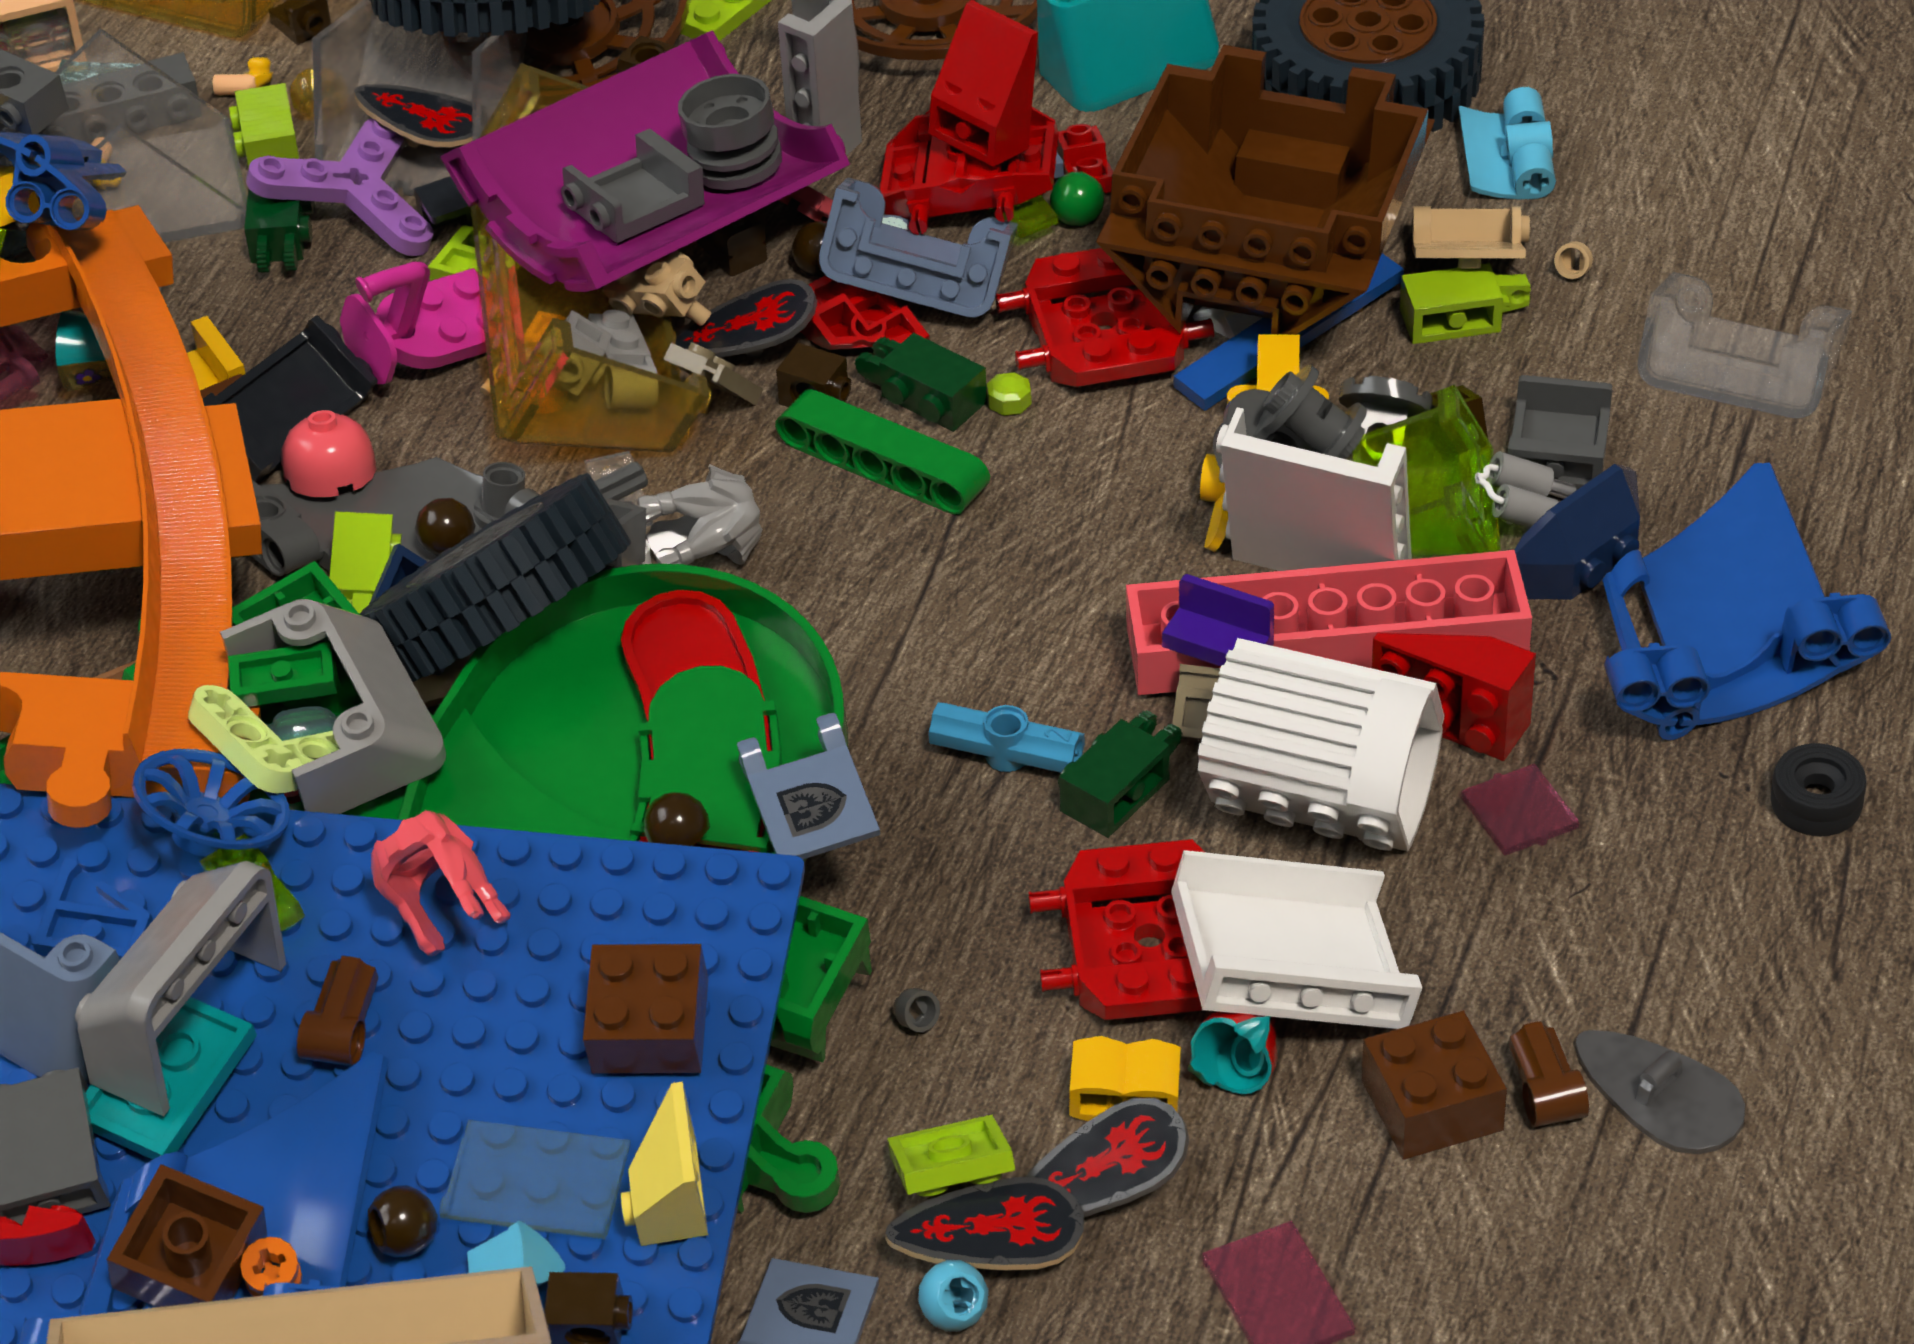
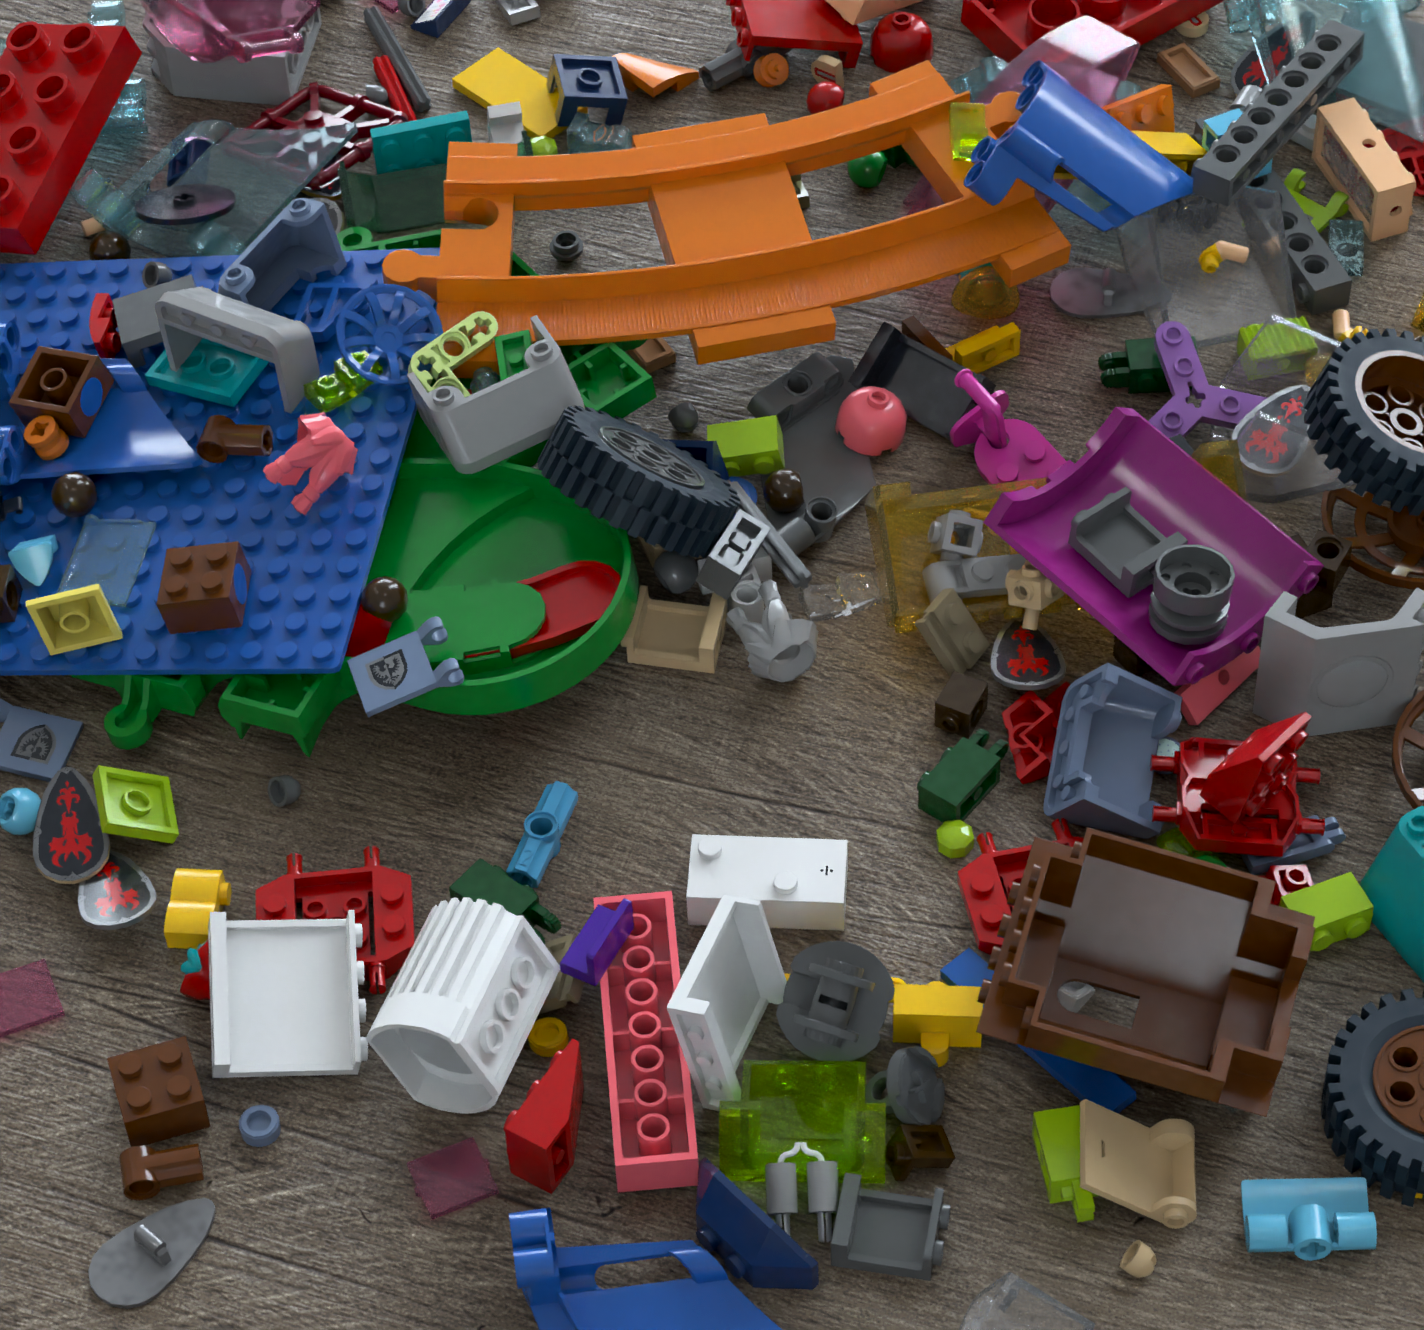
camera: 90 degrees right, 5 degrees up
(883, 451) = (875, 754): green beam -> none
(1083, 533) = (794, 878): none -> white brick
(1115, 108) = (1338, 908): none -> lime hinge
(1462, 991) = (259, 1125): none -> sand blue tile

